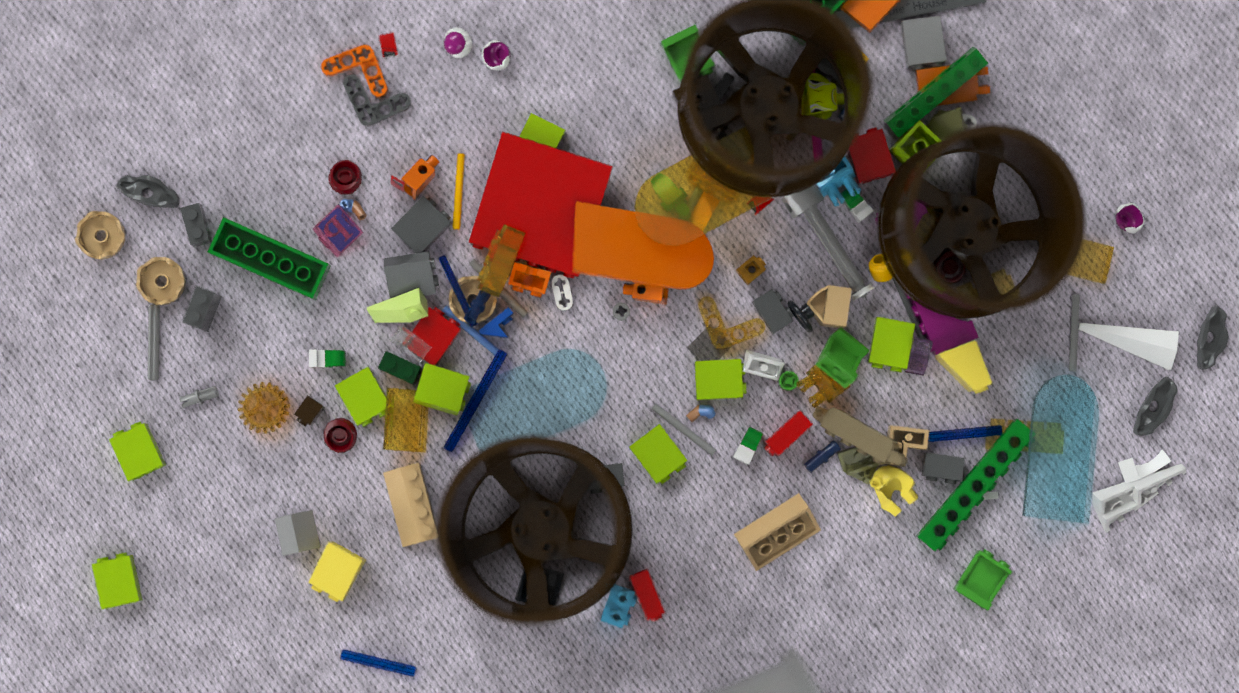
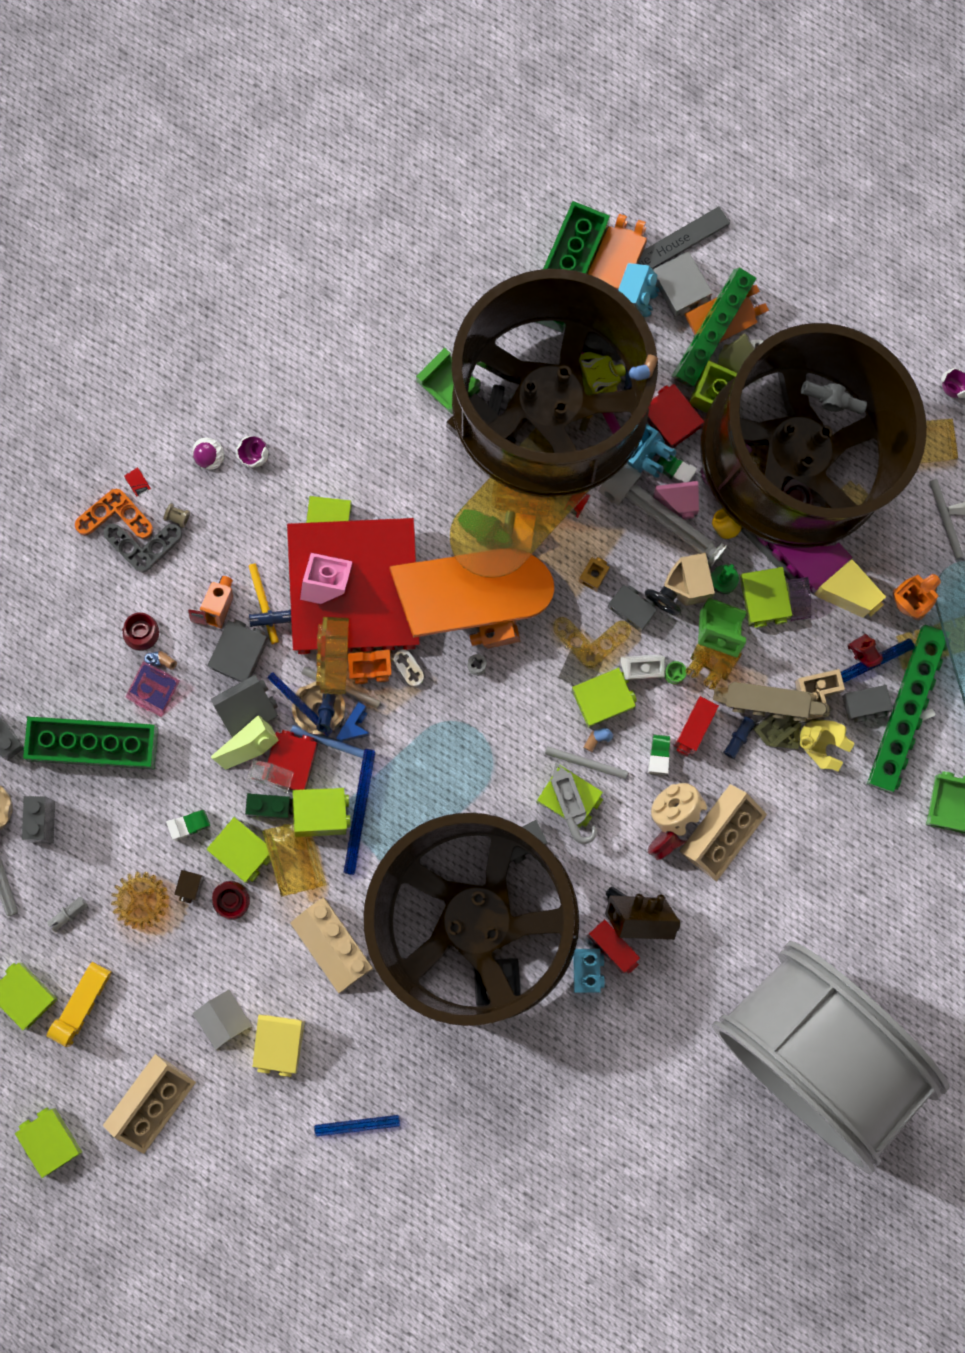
camera: 20 degrees left, 5 degrees down
(182, 477) = (79, 1005): none -> yellow beam
(211, 581) = (149, 1104): none -> tan slope
(411, 87) = (176, 515): none -> dark tan bush
(459, 207) = (270, 618): none -> dark blue pin
(517, 191) = (324, 578): none -> bright pink slope
(656, 461) = (570, 803): none -> light grey plate
(679, 578) = (641, 916): none -> dark brown piece
(724, 523) = (664, 844): none -> dark red piece
(753, 503) = (675, 818): none -> tan plate
(848, 232) = (679, 498): none -> bright pink slope
(852, 119) = (644, 371): none -> medium blue arm
(861, 315) = (725, 579): none -> green piece
(882, 32) = (639, 286): none -> medium azure brick
(958, 422) = (865, 651): none -> dark red piece
(1007, 200) = (834, 397): none -> dark grey pin
(1018, 393) = (917, 596): none -> orange piece

